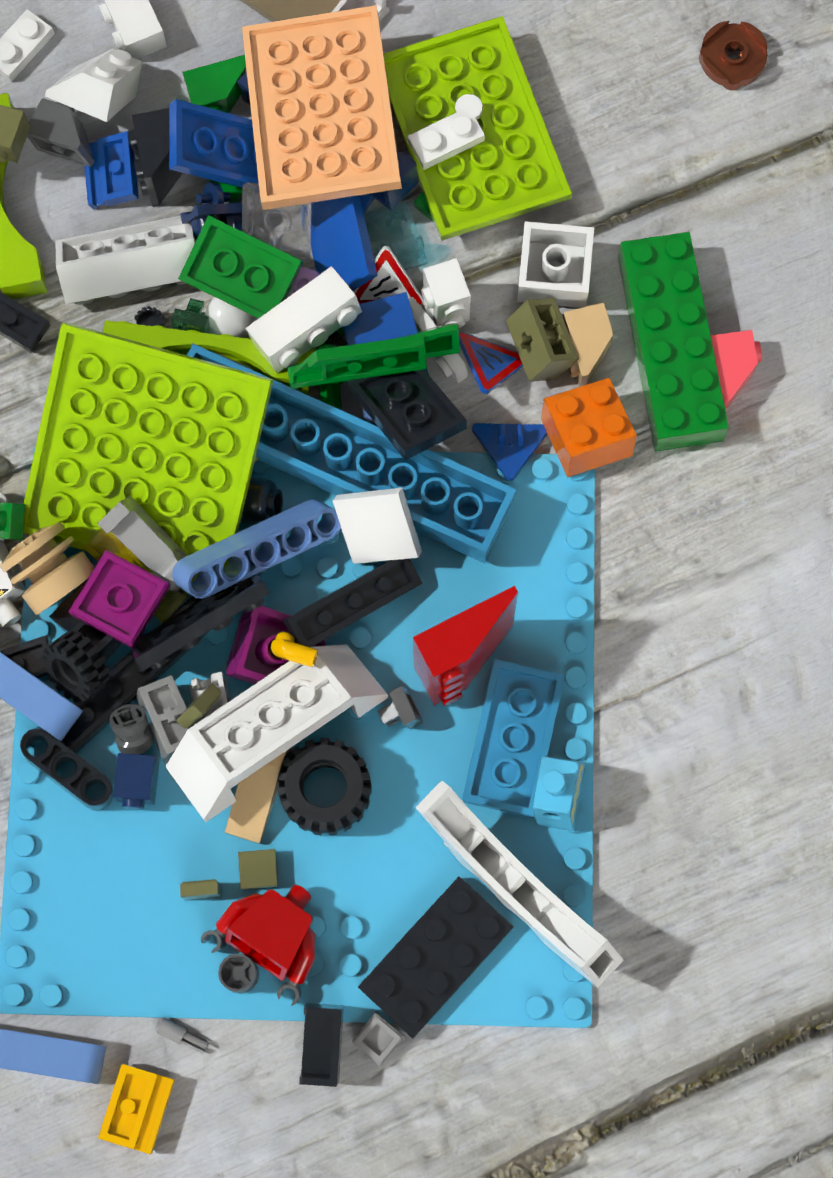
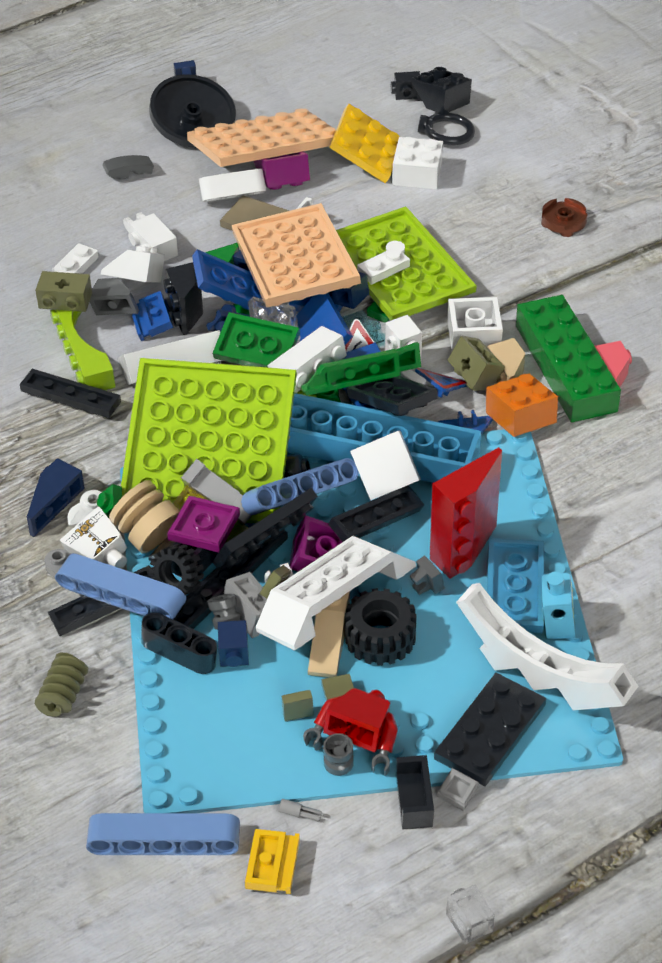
camera: 10 degrees left, 30 degrees down
(285, 648) = (337, 535): yellow arm -> none

